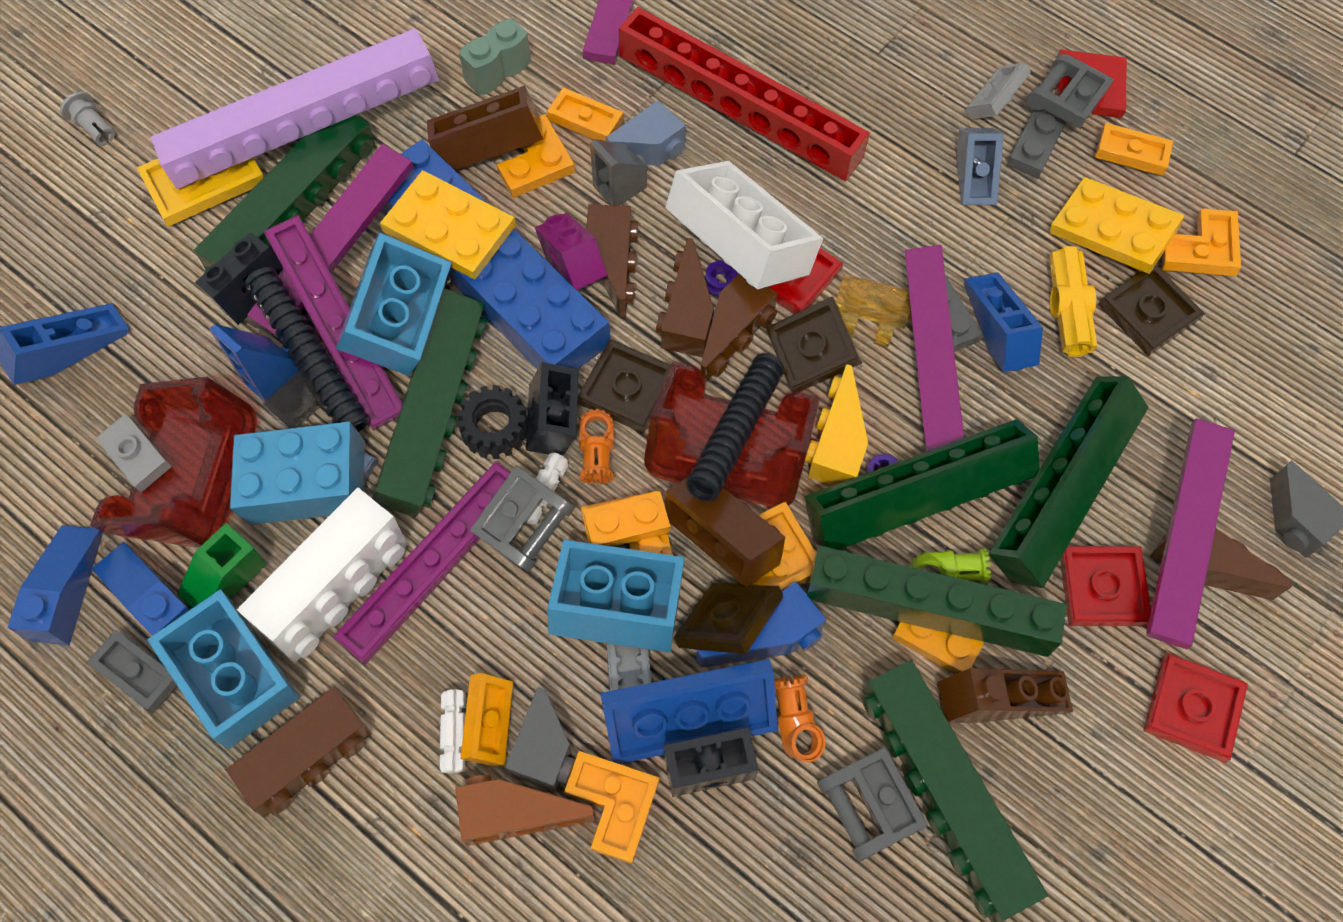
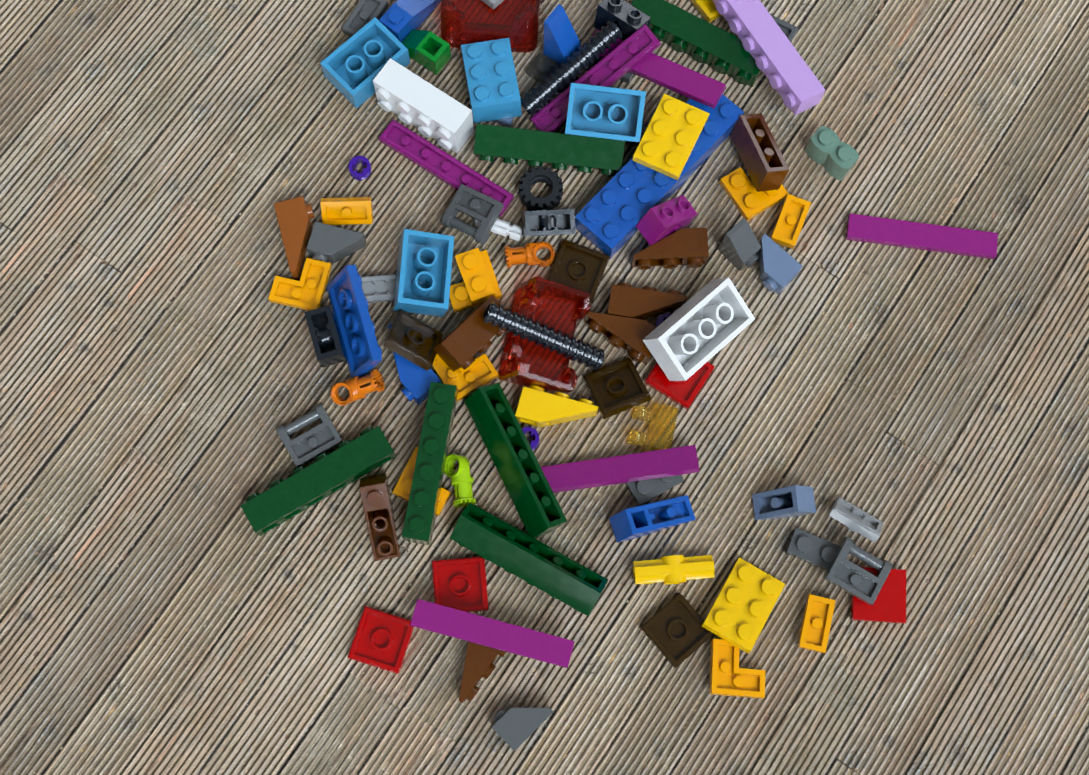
camera: 85 degrees right, 10 degrees up
(298, 753) = (322, 113): reddish brown brick -> none
(420, 689) = (353, 165): none -> dark purple bush
(452, 731) = (341, 192): white axle -> none
(743, 93) = (820, 326): red brick -> none

